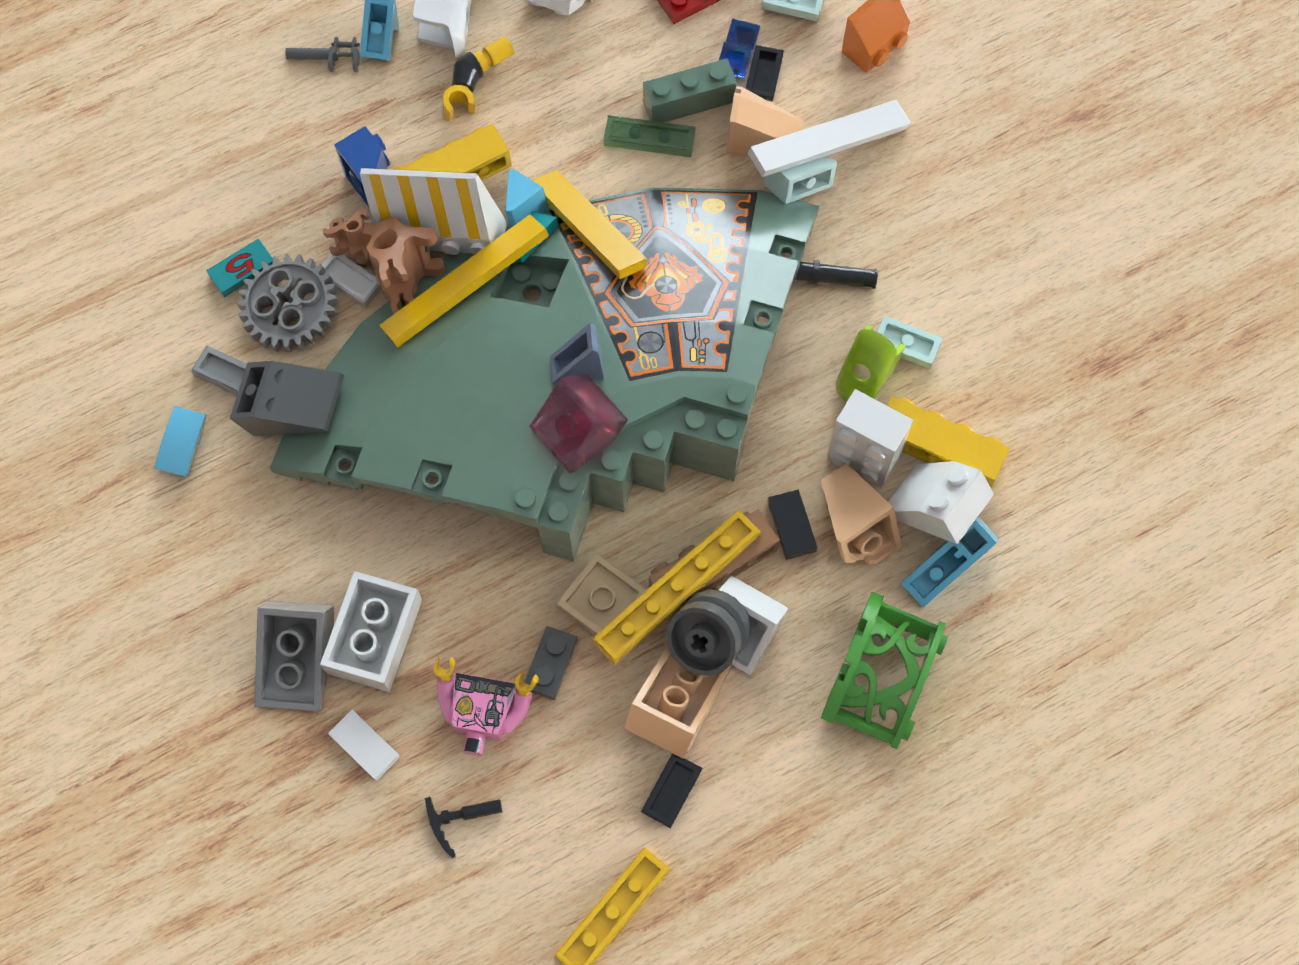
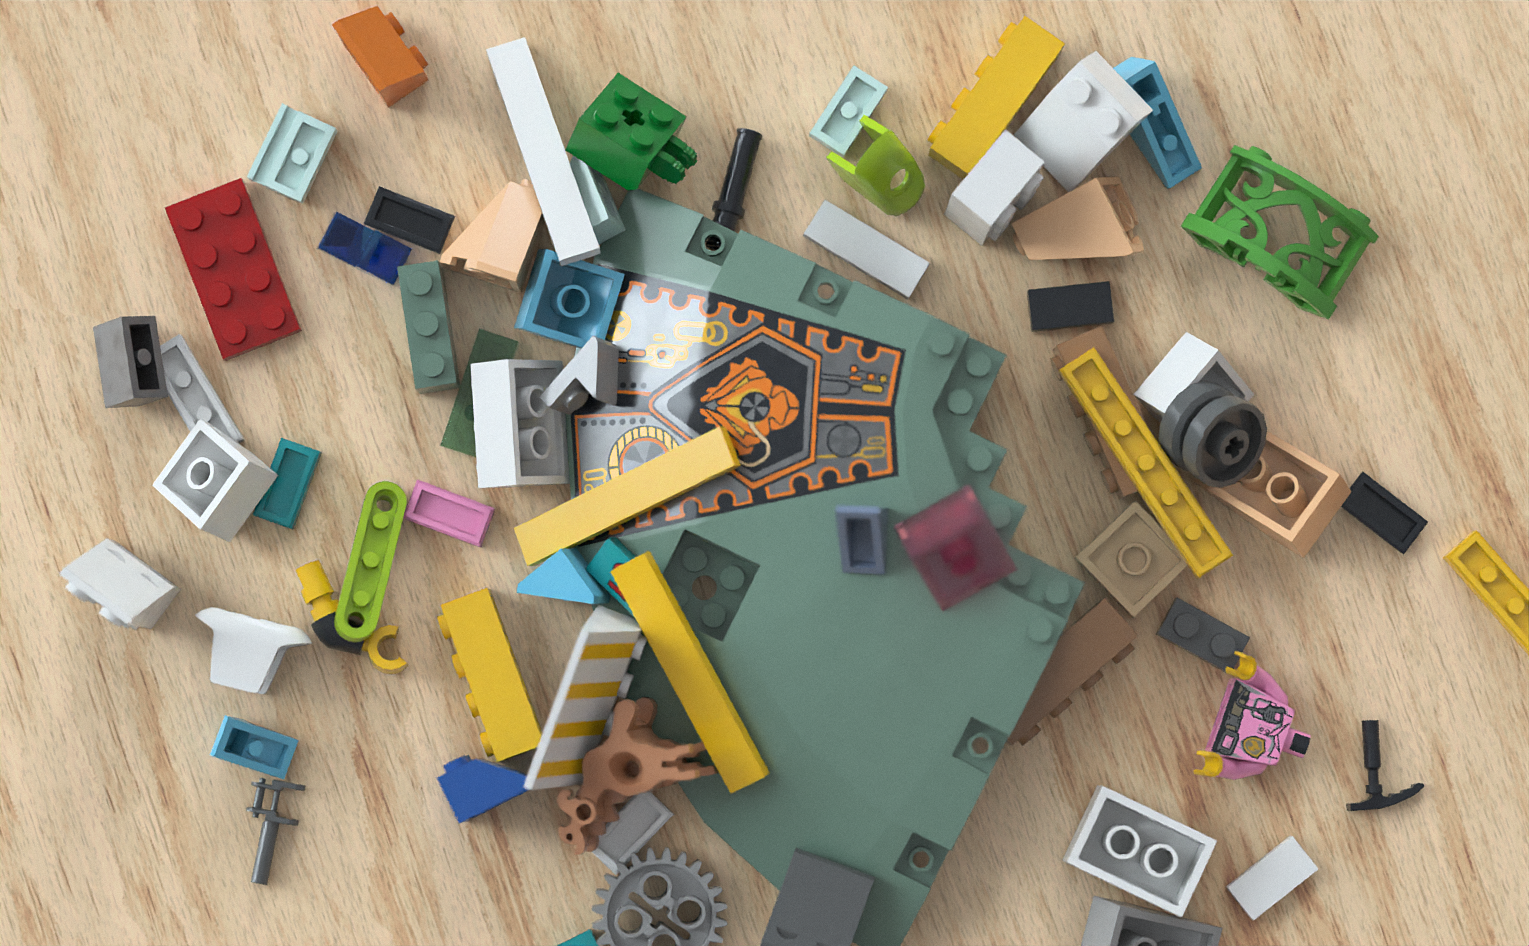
camera: 85 degrees left, 15 degrees up
(506, 554) = (1075, 663): none -> medium nougat brick
(517, 78) = (370, 561): none -> lime plate
(561, 130) = (449, 513): none -> bright pink tile
(565, 29) = (286, 495): none -> teal tile
(632, 157) = (515, 431): none -> white slope
(671, 187) = (590, 371): none -> light grey slope
(724, 172) = (568, 300): none -> medium azure slope
(805, 372) = (866, 249): none -> white tile
(854, 189) = (631, 135): none -> green hinge

